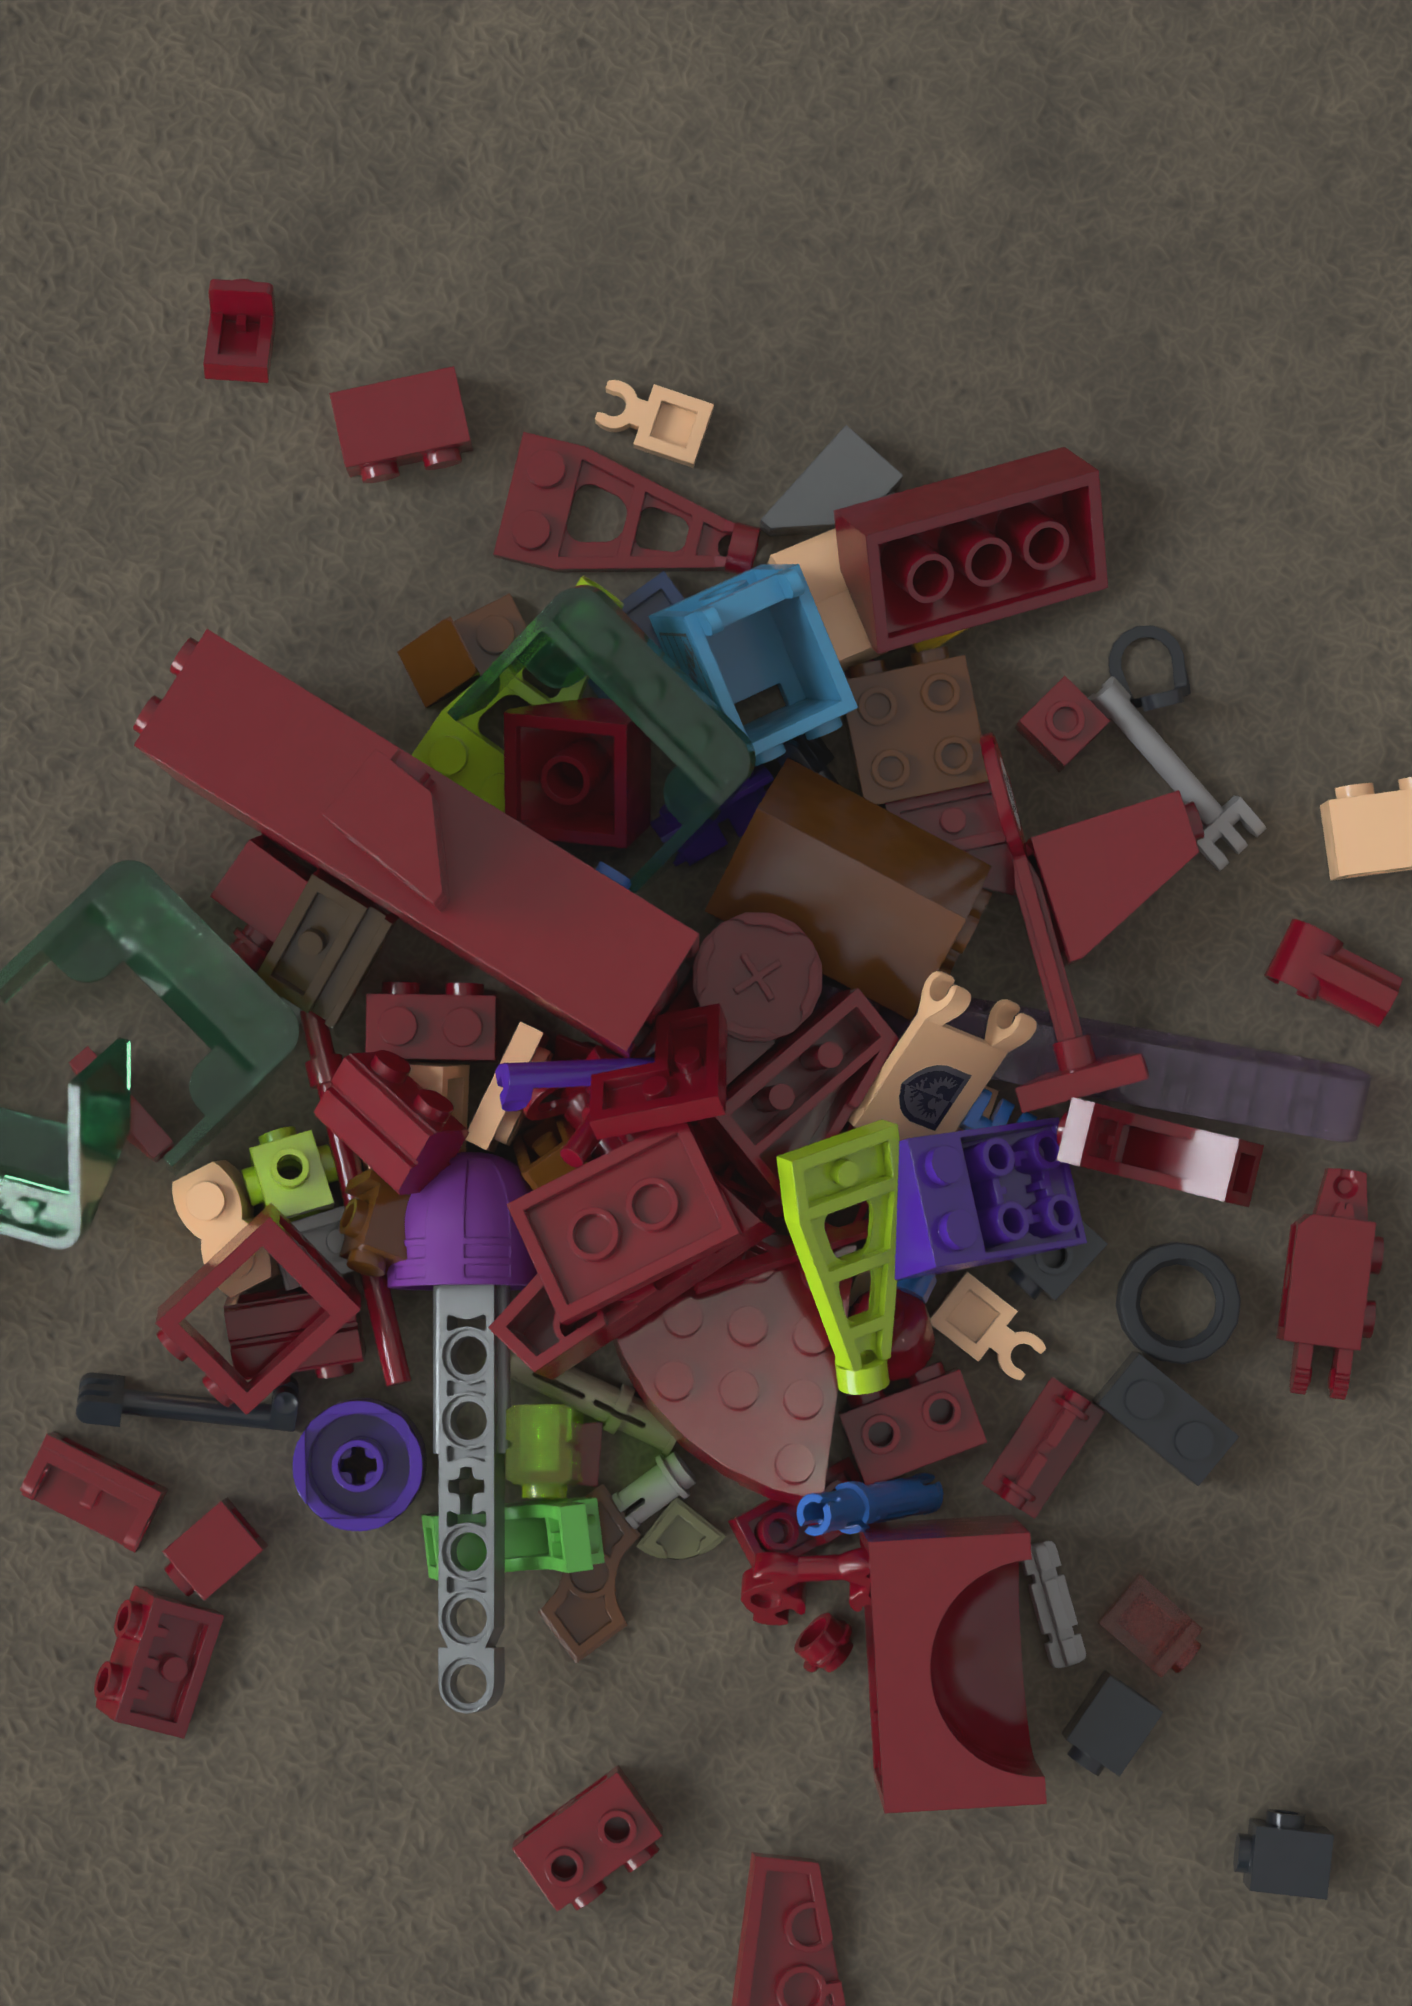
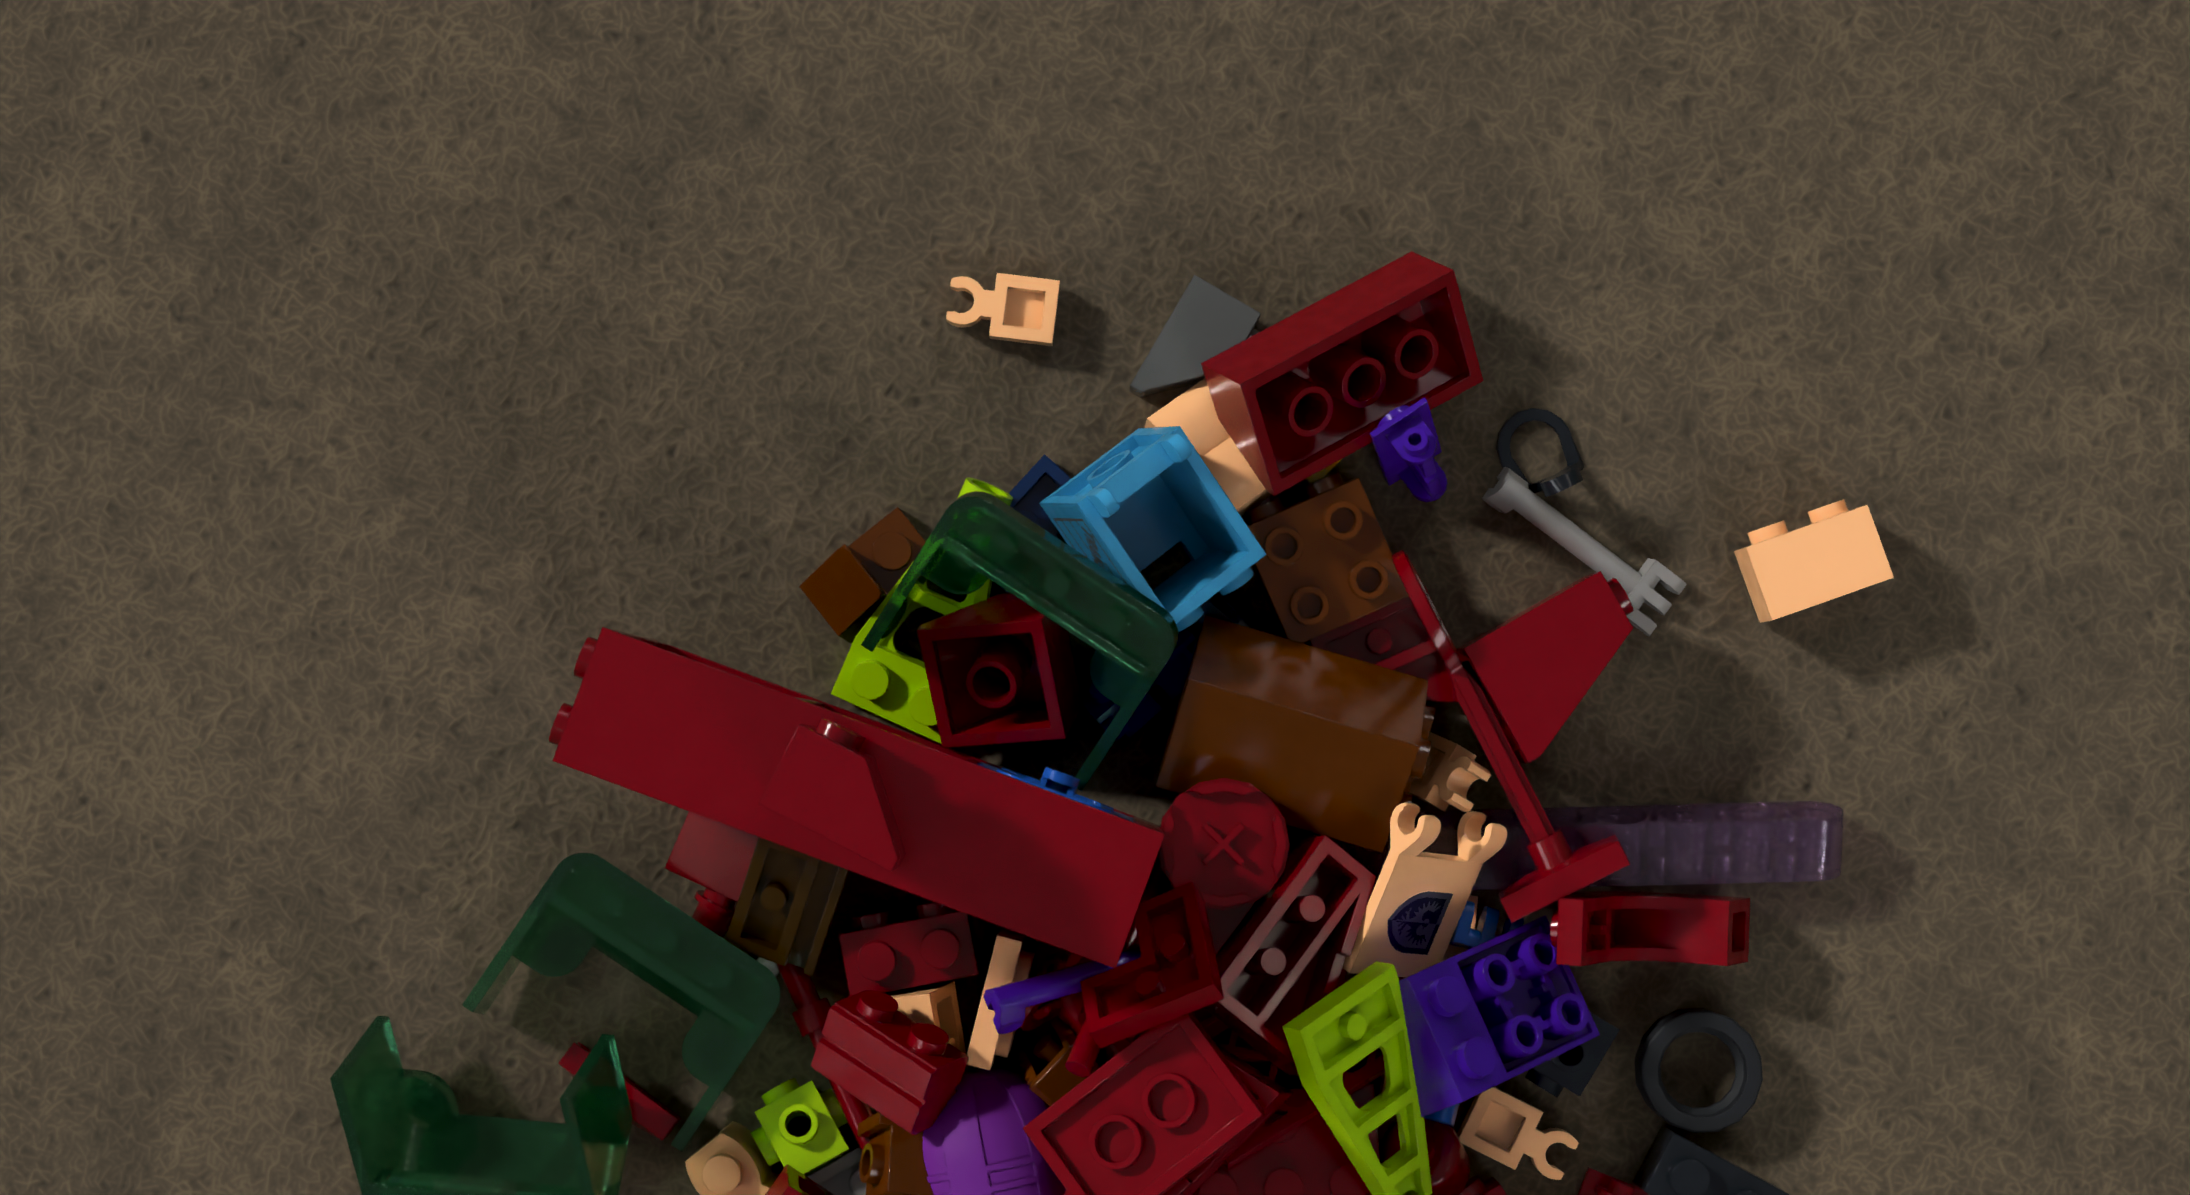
camera: 10 degrees left, 0 degrees up
(240, 330) = (580, 304): dark red bracket -> none
(402, 424) = (757, 363): dark red brick -> none
(541, 503) = (910, 412): dark red plate -> none
(989, 962) = (1448, 775): none -> light nougat plate
(1020, 637) = (1406, 450): none -> dark purple hinge
(1062, 724) = (1467, 524): dark red brick -> none
(1326, 971) = (1770, 713): dark red piece -> none
(1329, 1280) = (1842, 1018): dark red hinge -> none

